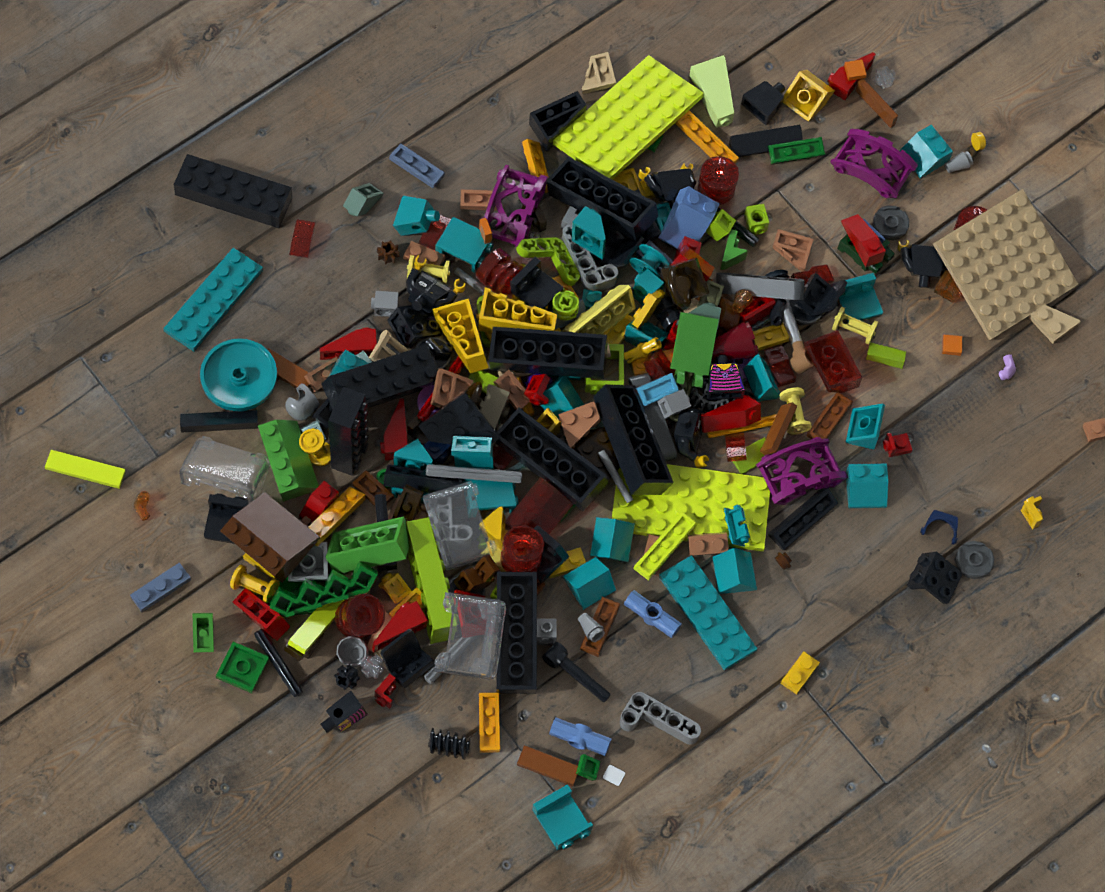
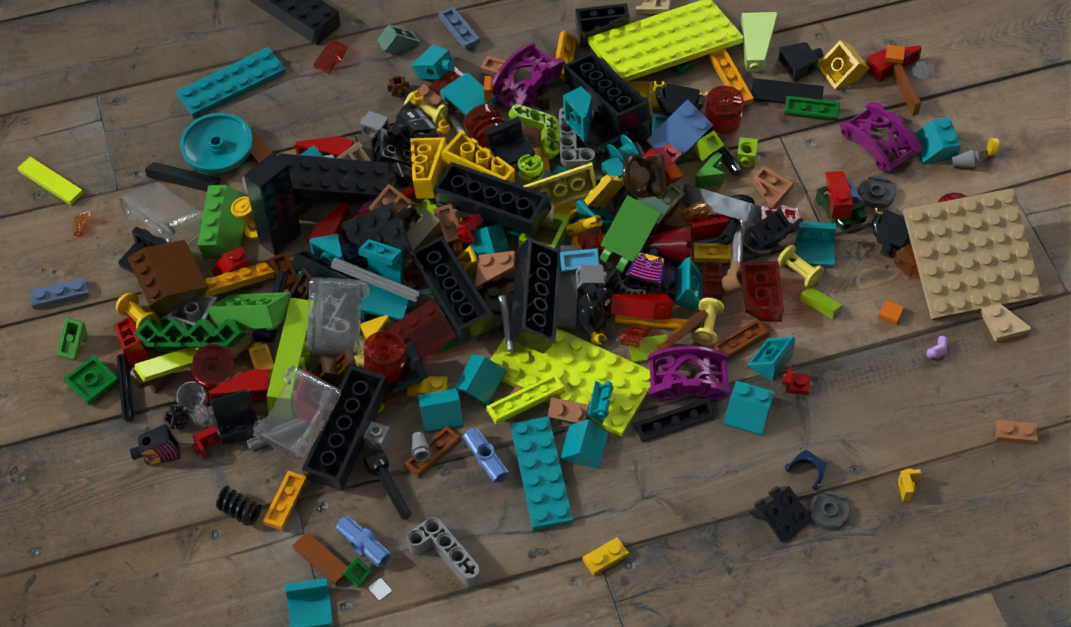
camera: 30 degrees right, 10 degrees down
(783, 560) = (635, 449): reddish brown plate -> none

